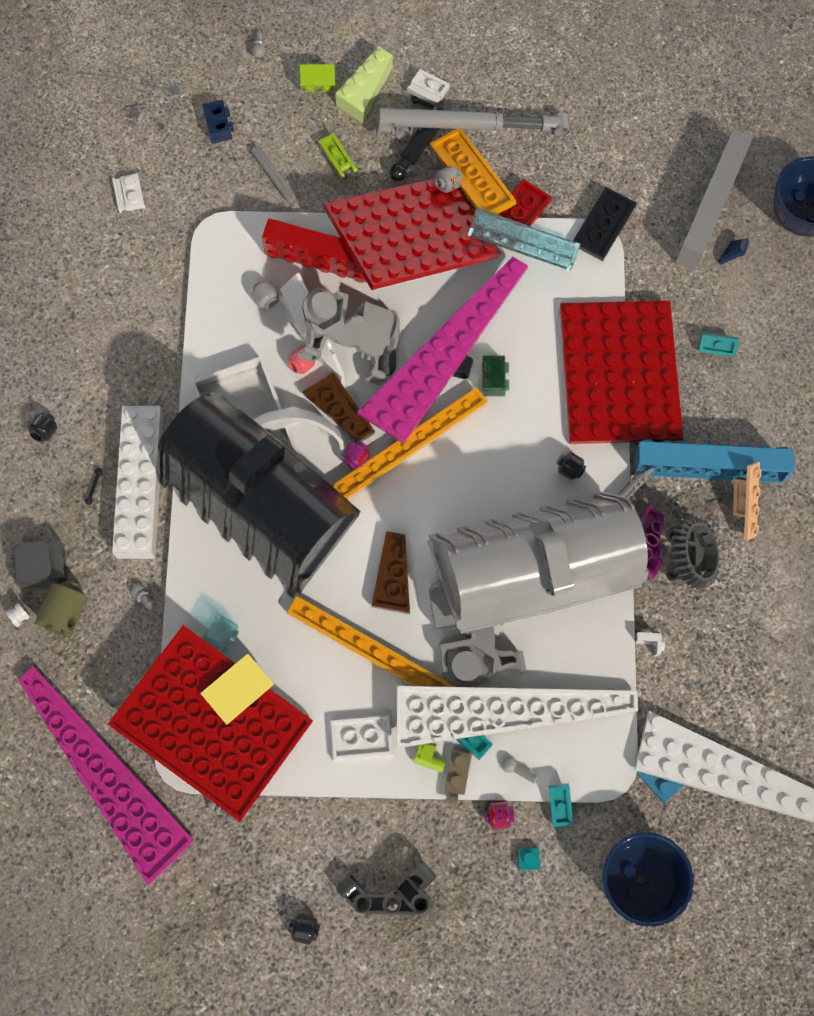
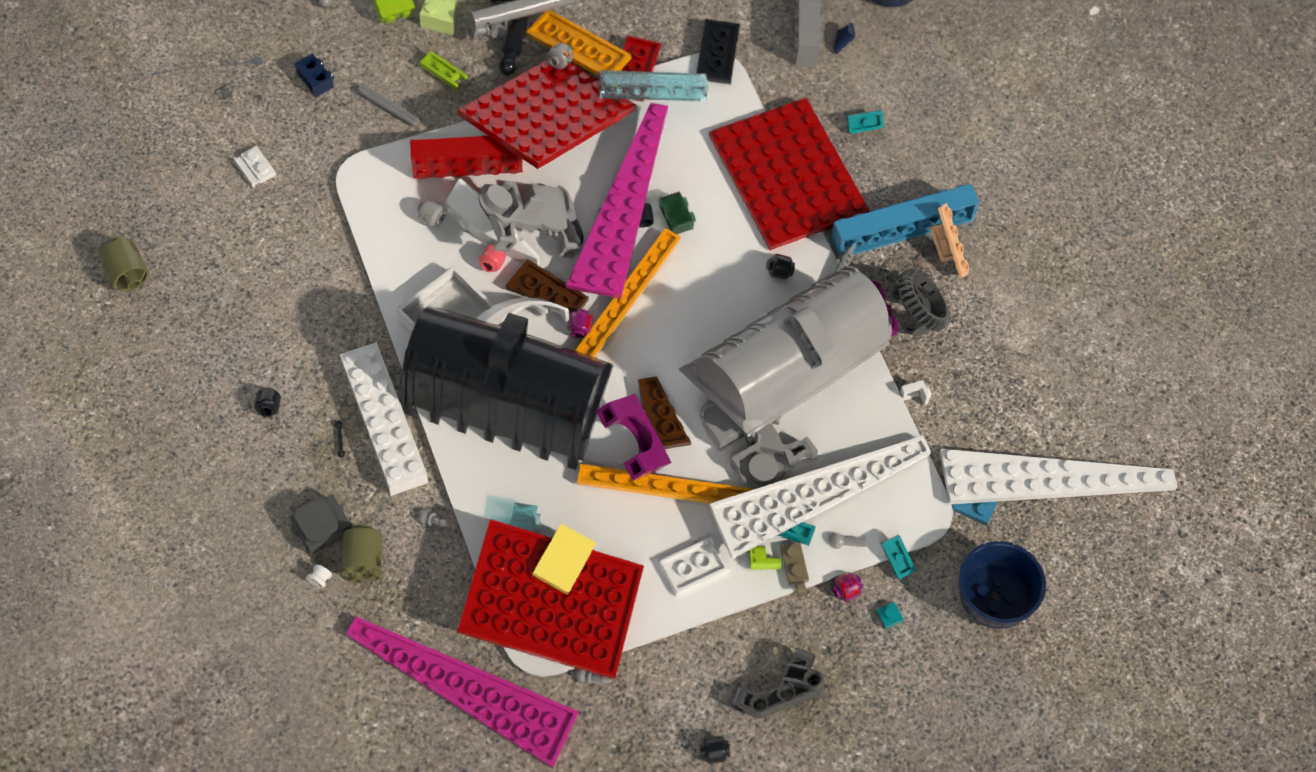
camera: 25 degrees left, 10 degrees down
(366, 612) = (629, 413): none -> magenta arch

